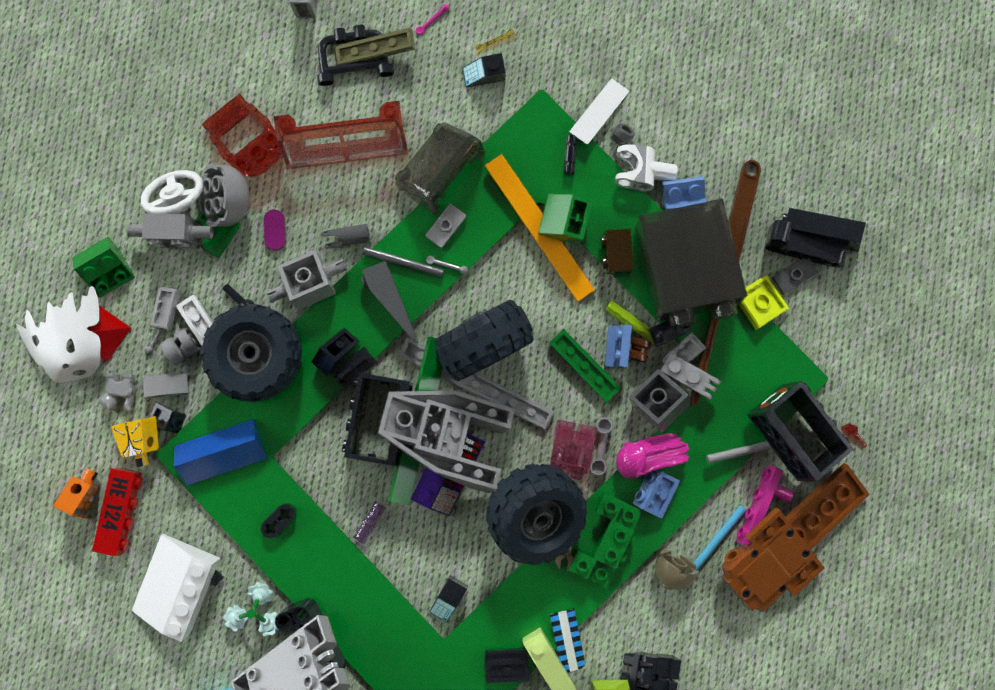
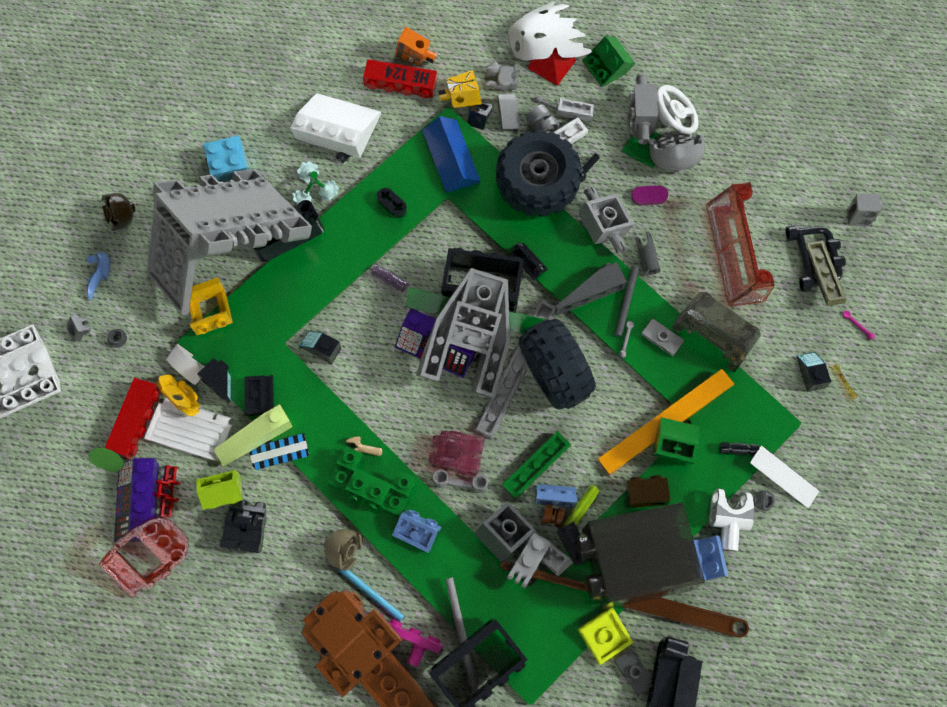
camera: 85 degrees right, 15 degrees down
(259, 153) = (716, 178): clear red slope -> none
(334, 351) = (542, 243): black slope -> none
(536, 514) = (397, 411): black wheel -> none
(651, 454) = (453, 523): dark pink hair -> none

